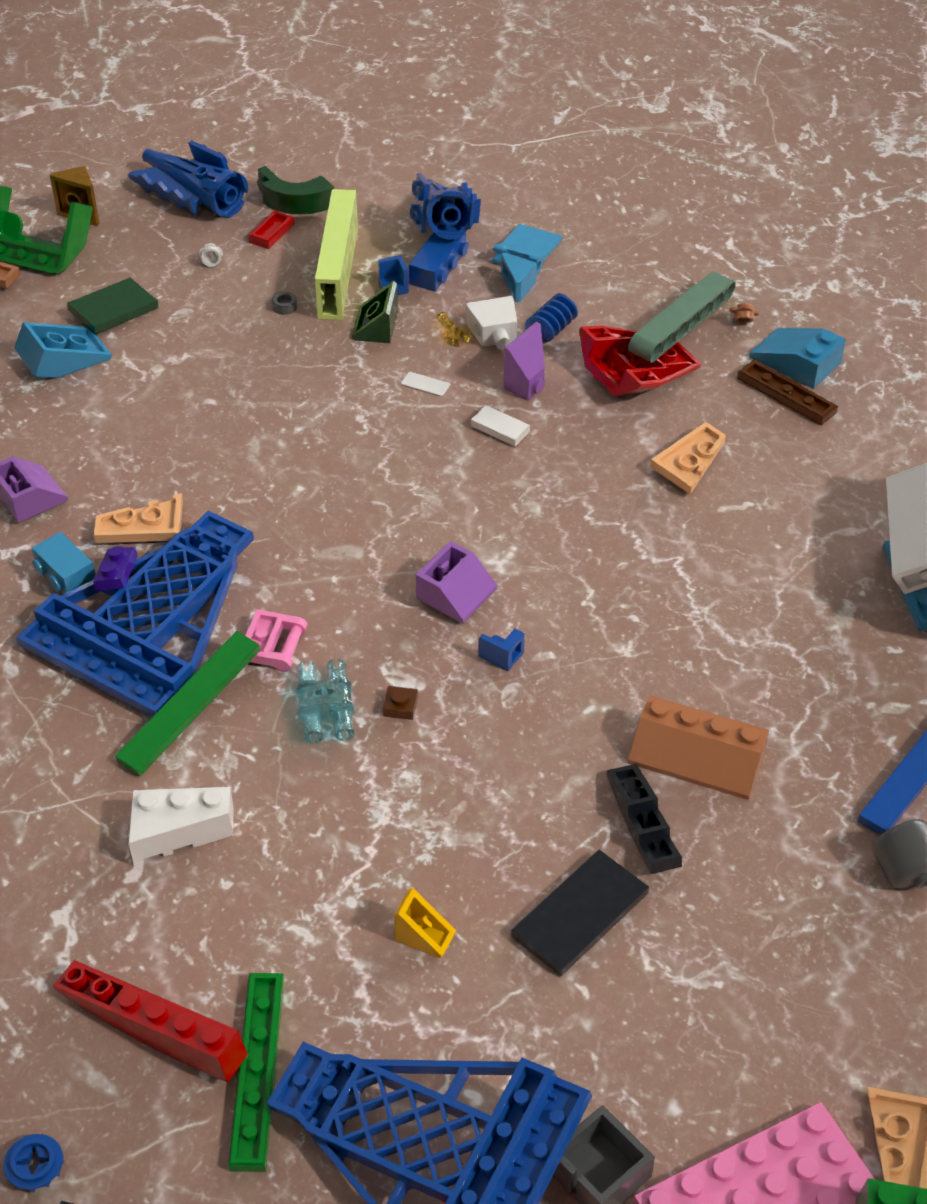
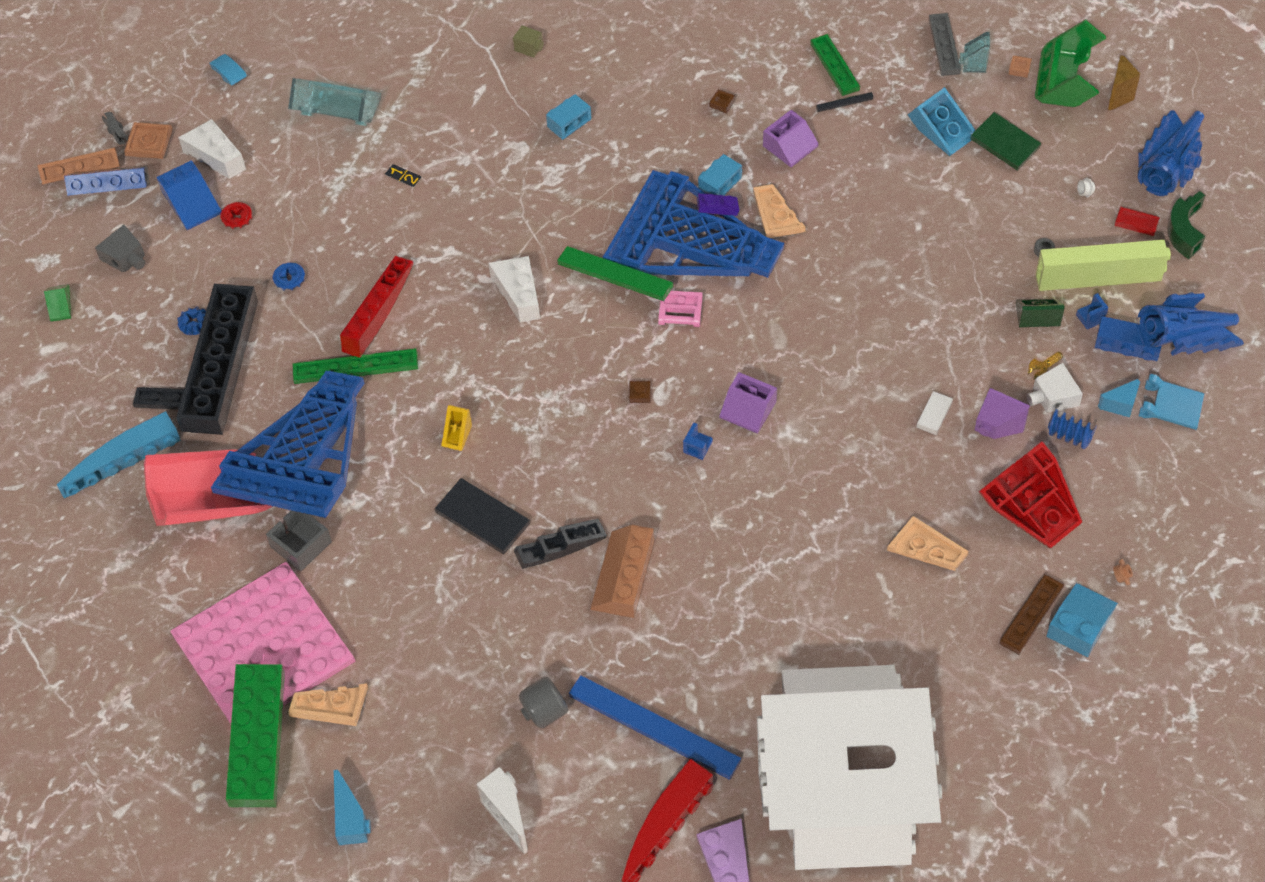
camera: 85 degrees right, 10 degrees up
(325, 701) = (632, 339): clear light blue pin -> none
(425, 383) = (975, 358): white sticker -> none
(681, 317) = (1094, 521): sand green beam -> none

